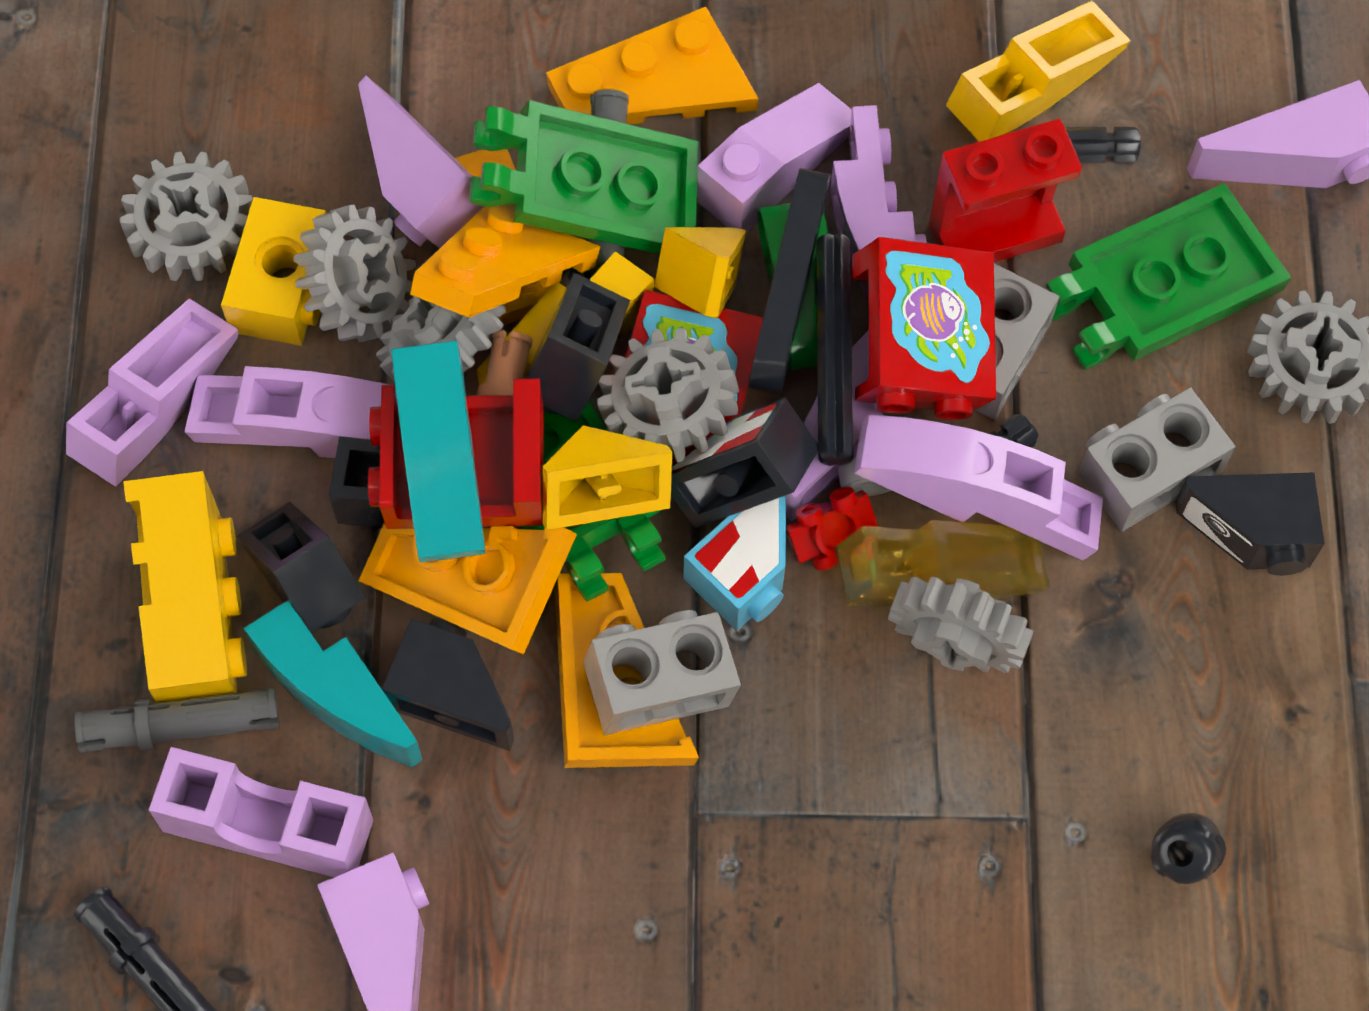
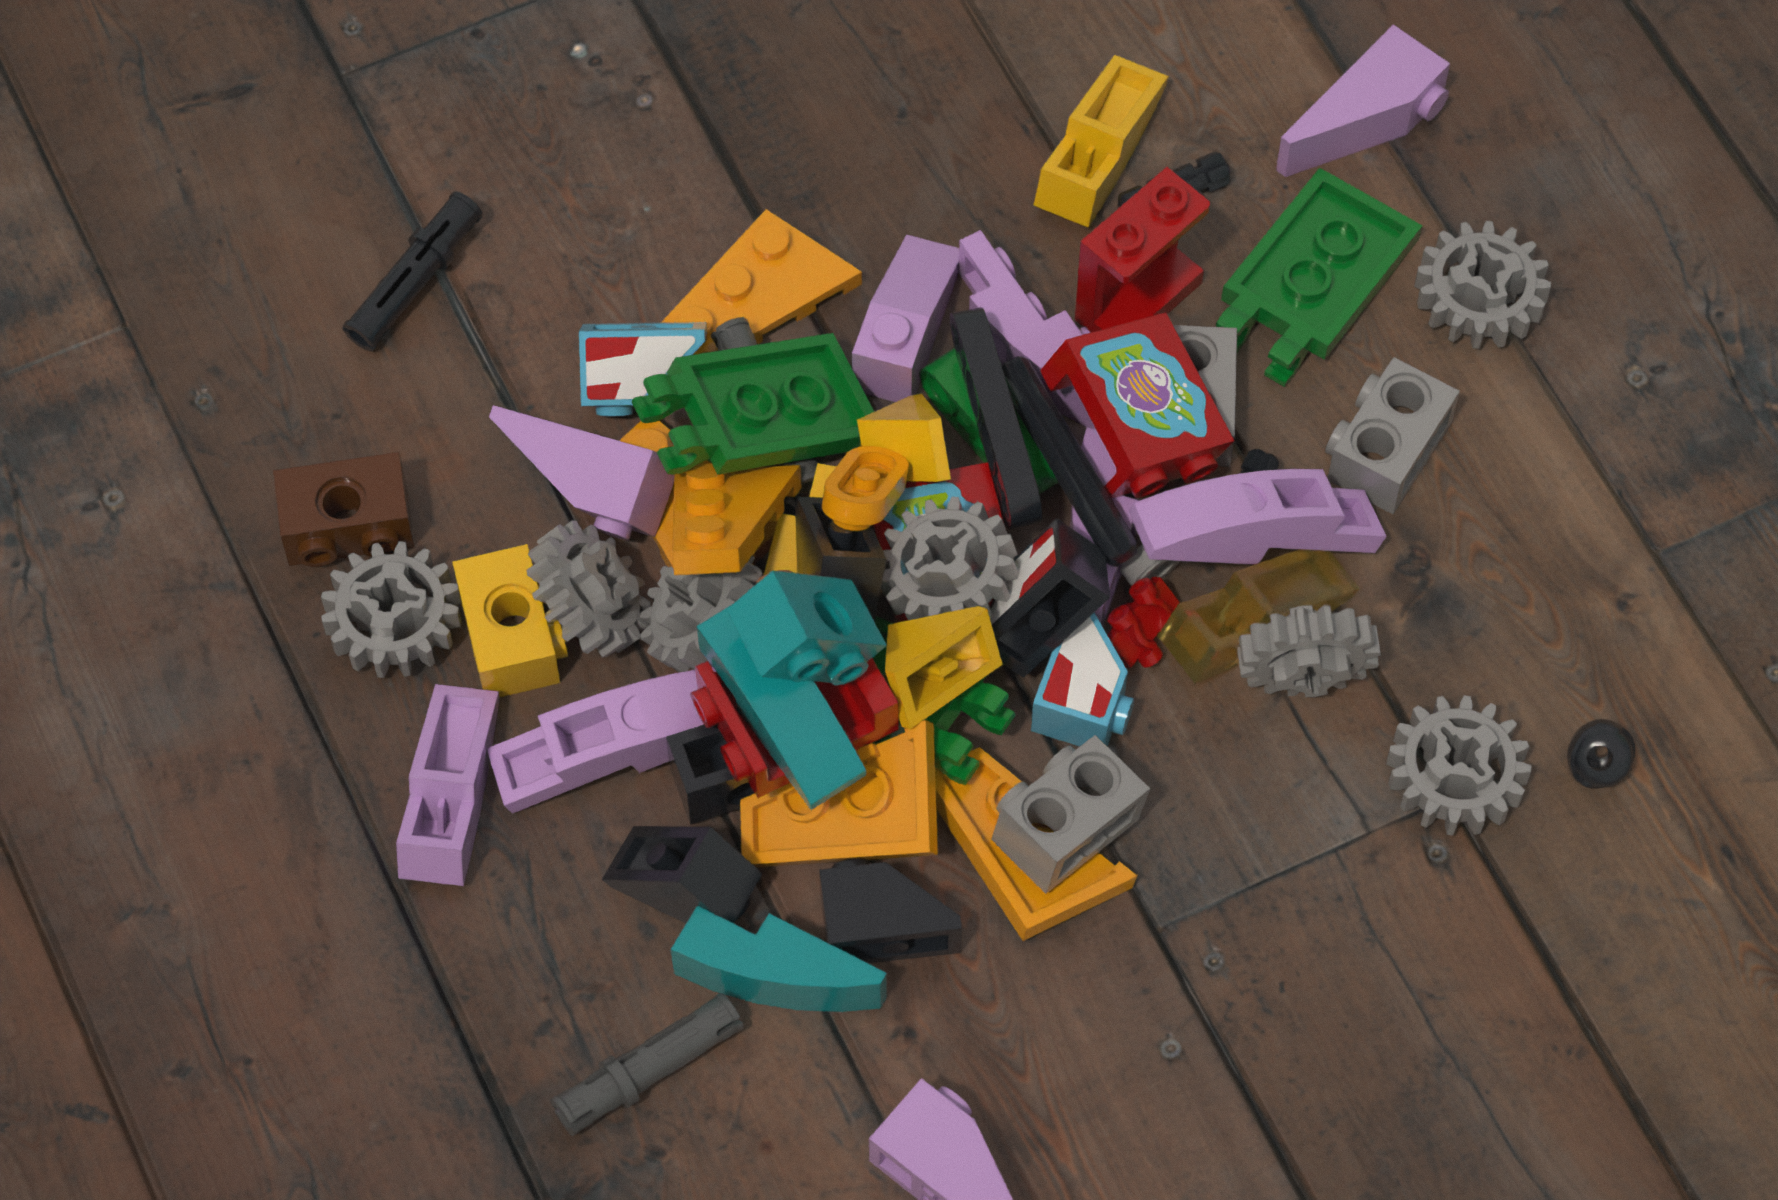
camera: 25 degrees left, 5 degrees down
(177, 88) = (316, 492): none -> reddish brown brick
(186, 588) = (591, 940): yellow wedge -> none
(224, 808) = (740, 1118): lavender arch -> none
(479, 396) = (806, 628): none -> teal brick
(506, 79) = (622, 355): none -> slope
(632, 290) = (864, 487): none -> light orange plate
(1021, 803) = (1458, 769): none -> light grey gear
(1257, 518) = (1507, 446): black slope -> none

